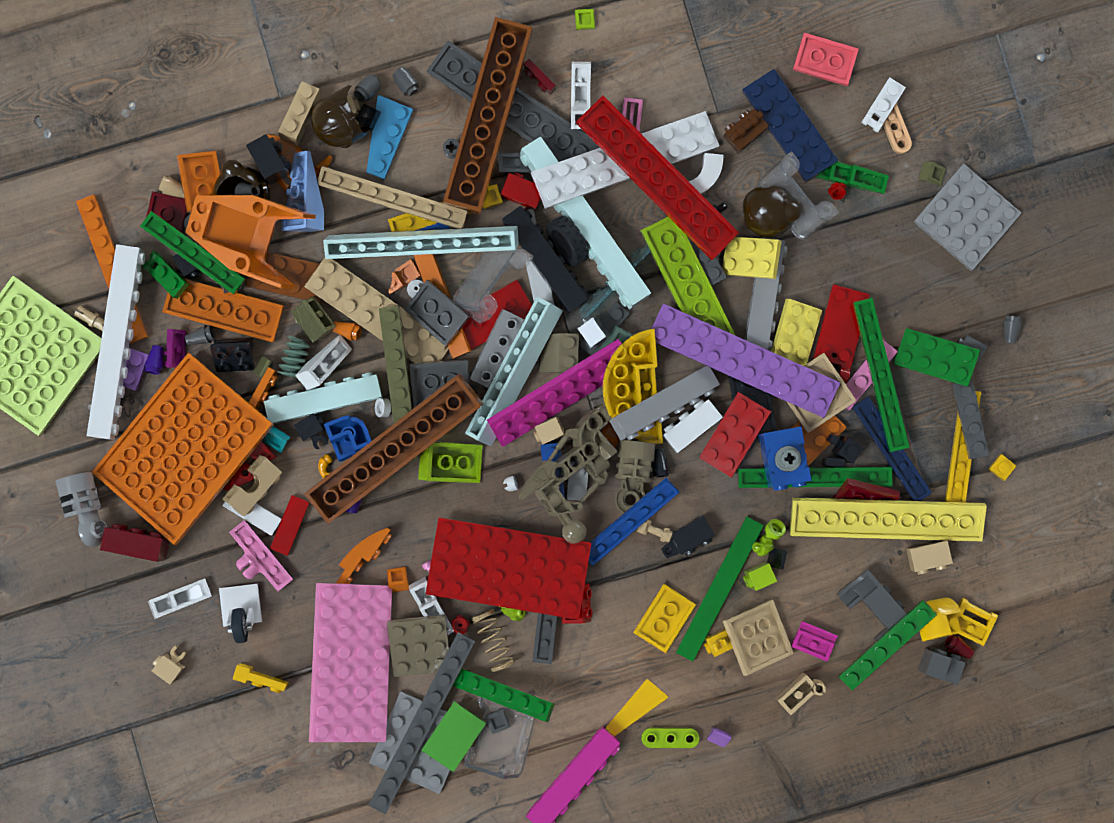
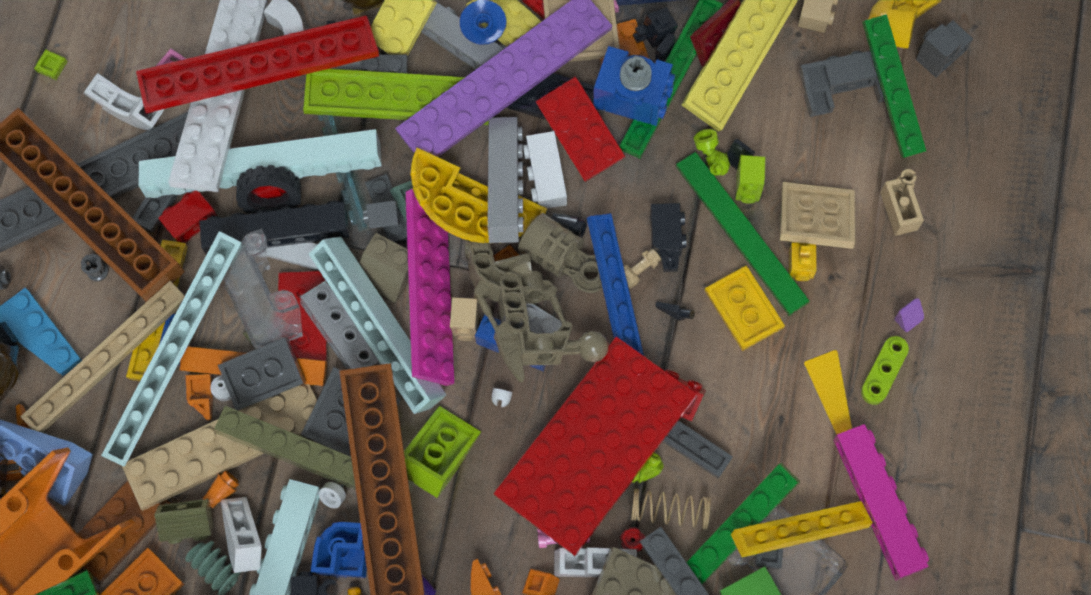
camera: 50 degrees left, 15 degrees down
(522, 736) = (801, 529): none -> yellow plate
(544, 82) = (78, 137): dark red plate -> none
(636, 571) = (676, 311): none -> black bar
(785, 314) = (482, 12): none -> blue dish
(814, 641) = (851, 162): dark pink plate -> none
(958, 646) = (931, 20): dark red cone -> none

